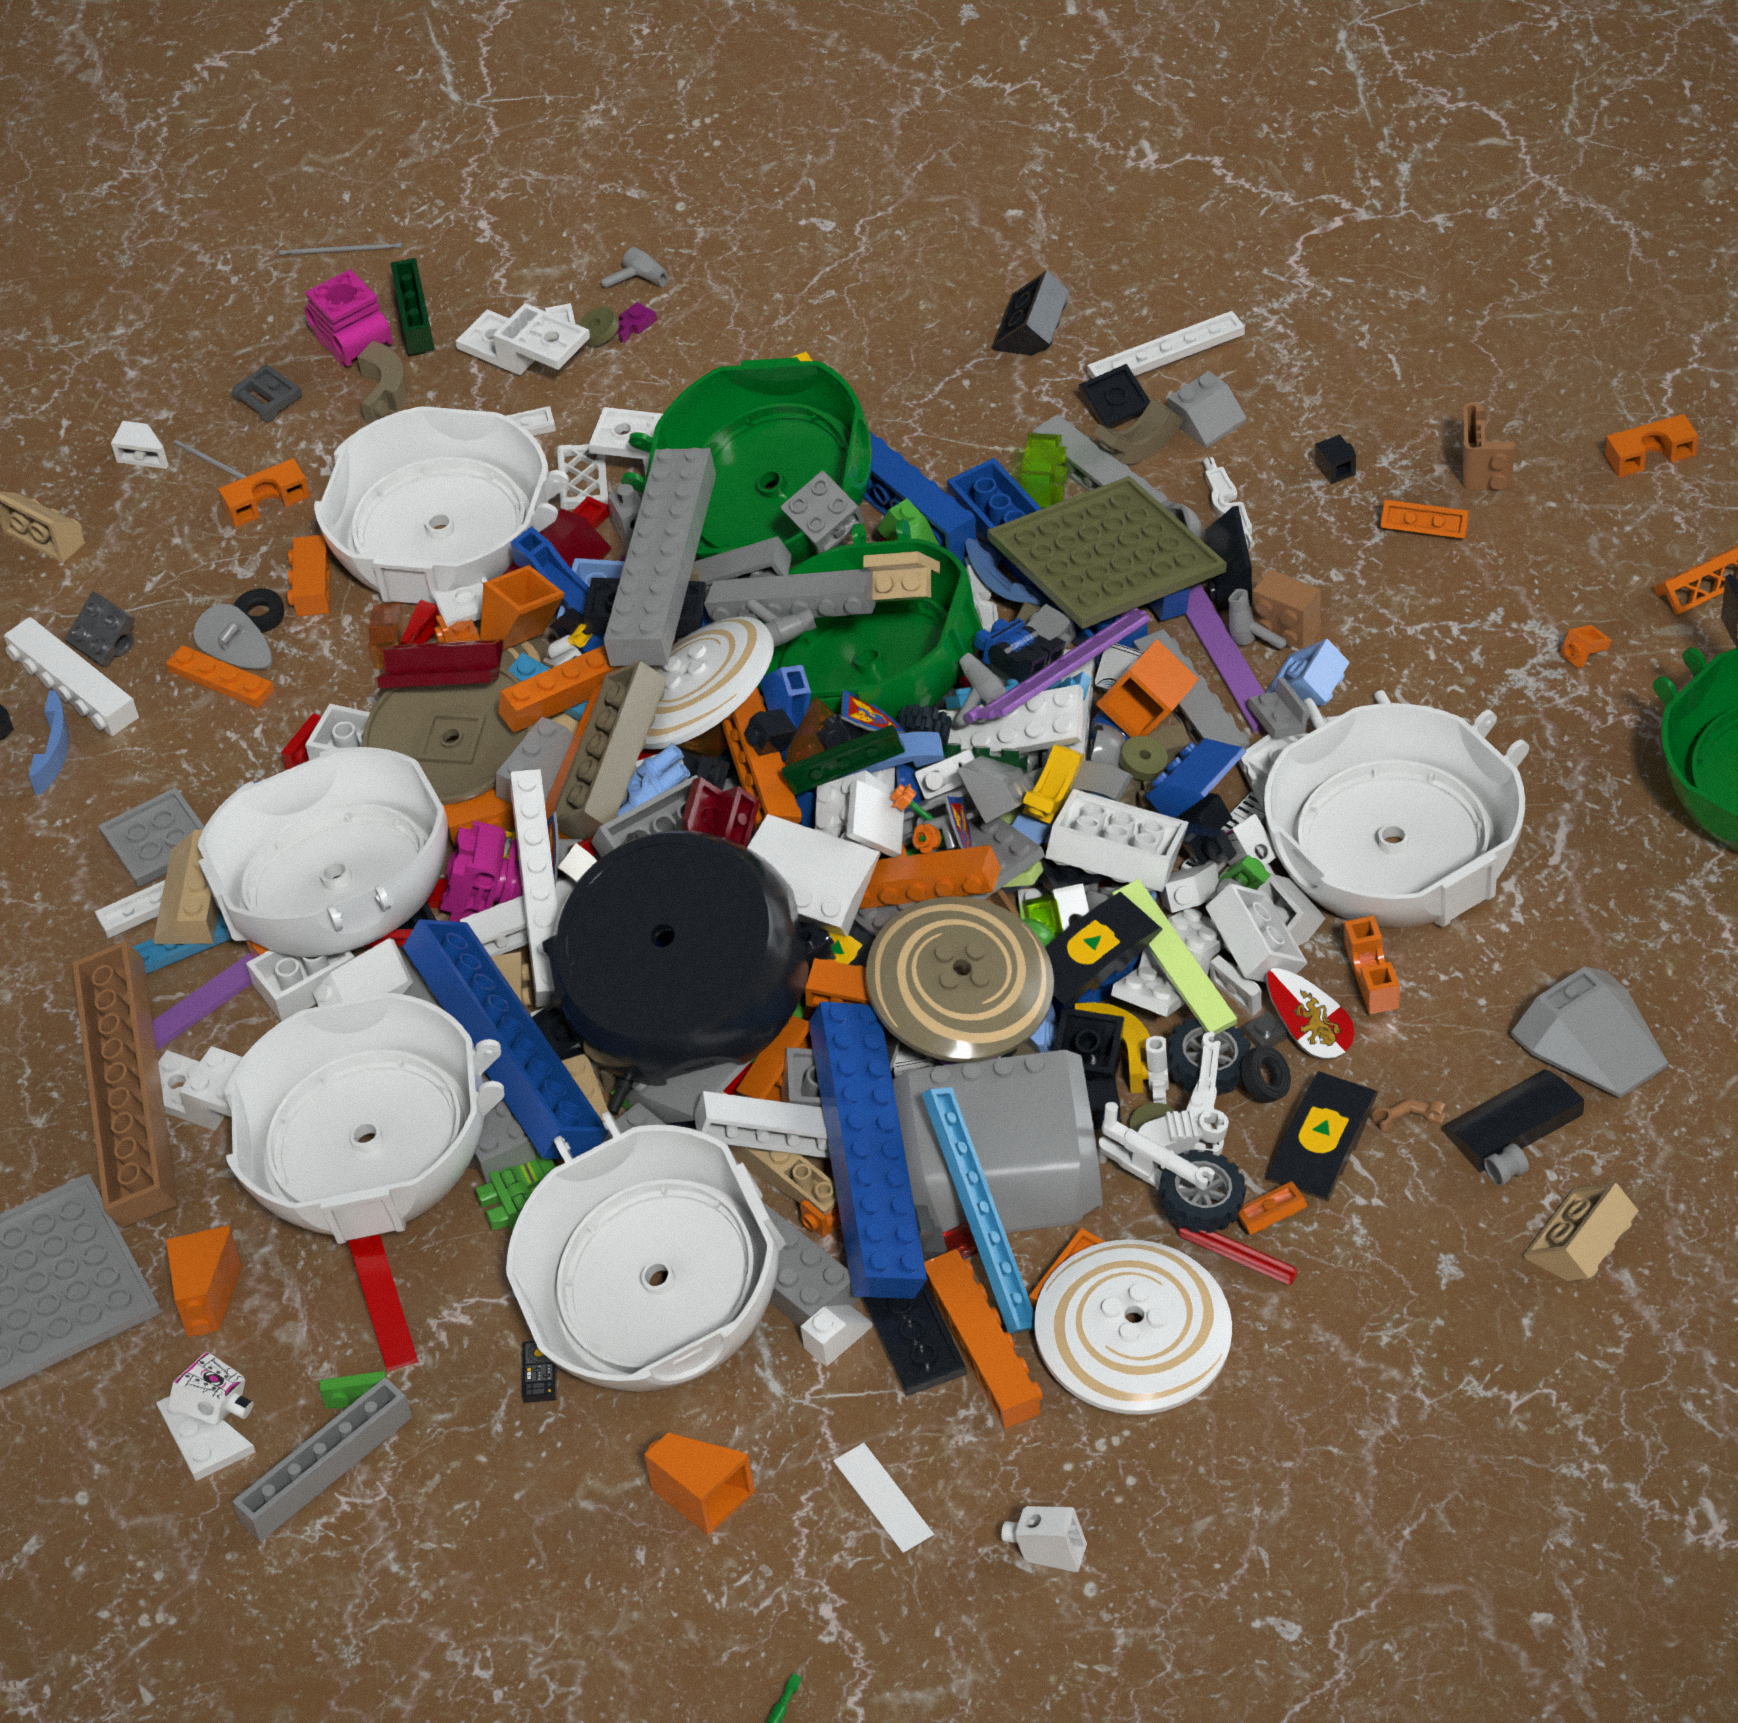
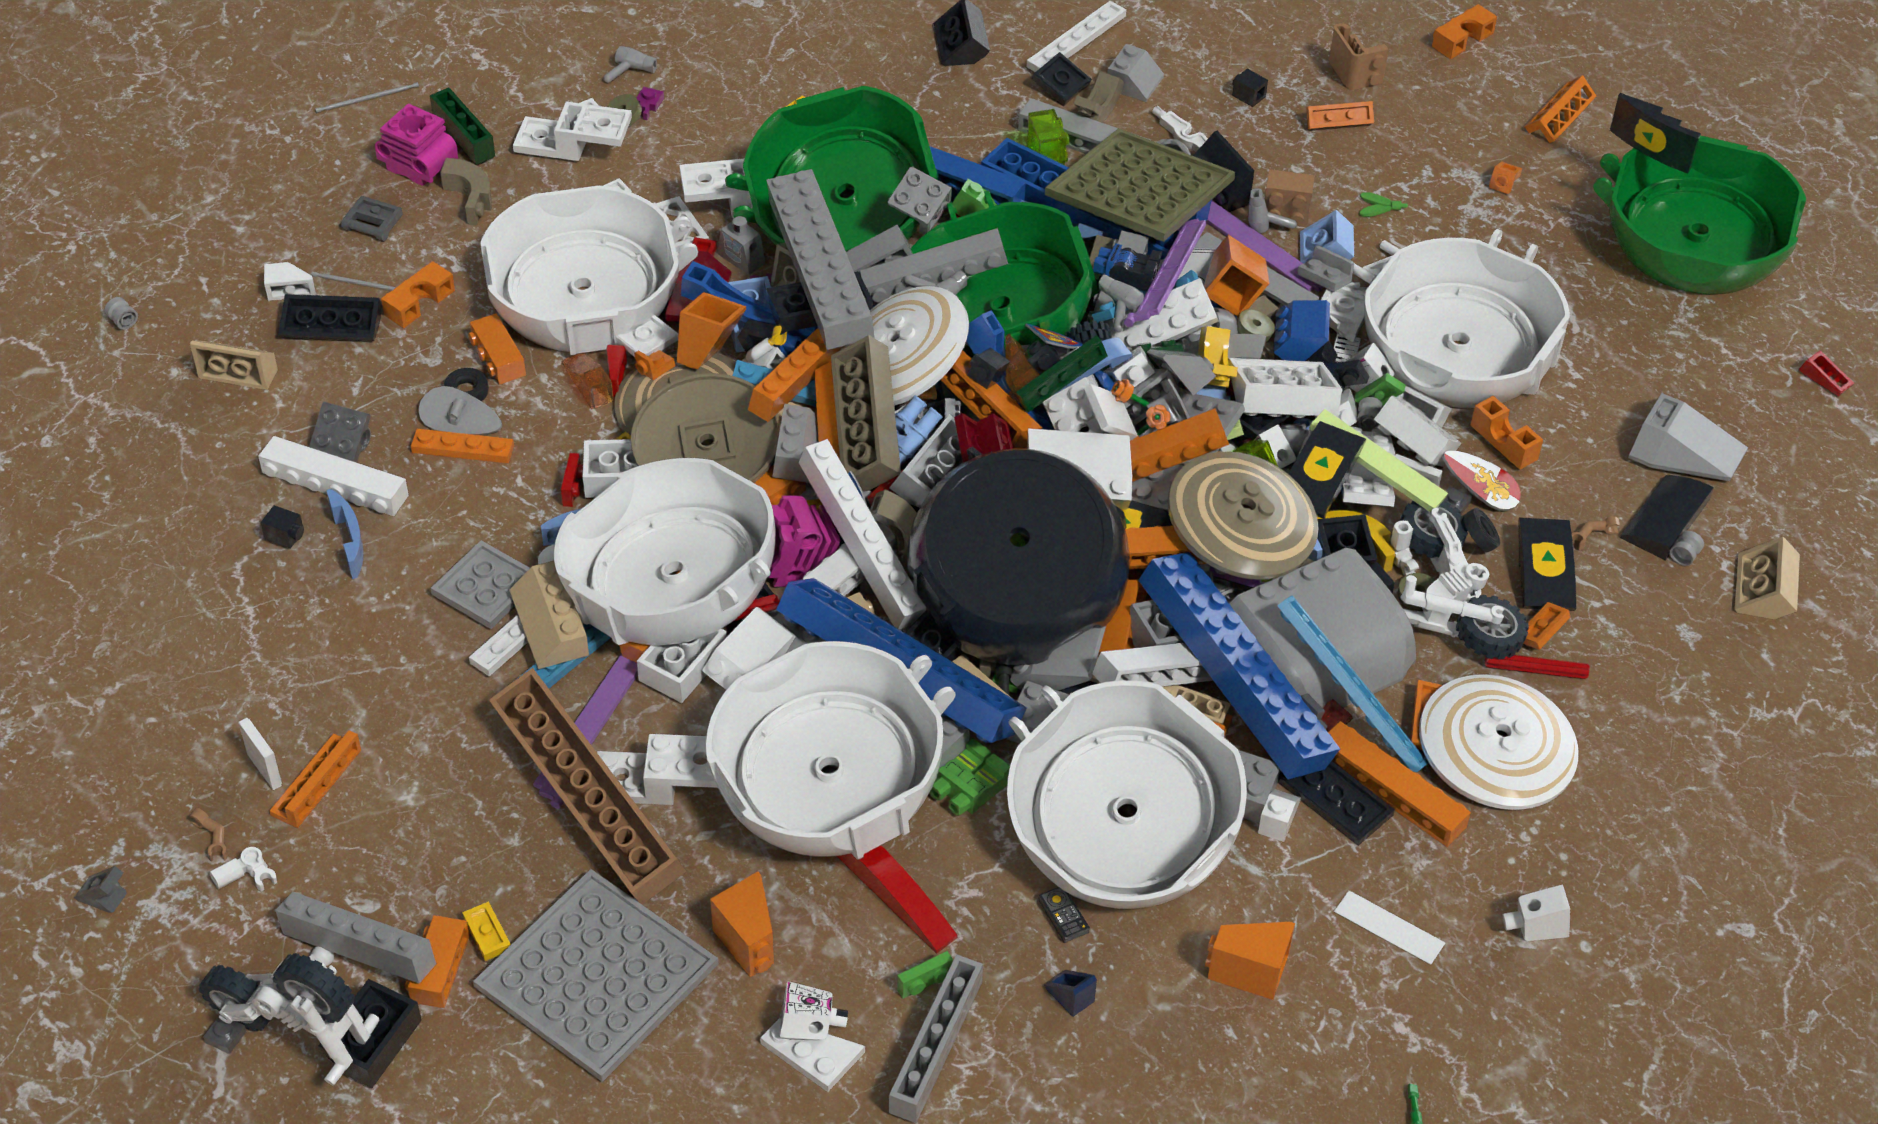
camera: 30 degrees left, 0 degrees up
(163, 497) = (330, 317): none -> black slope
(441, 663) = (676, 383): dark red slope -> none
(496, 1458) = (1073, 990): none -> dark blue slope
(901, 575) = (1023, 229): tan bracket -> none
(1411, 644) = (1380, 205): none -> bright green piece

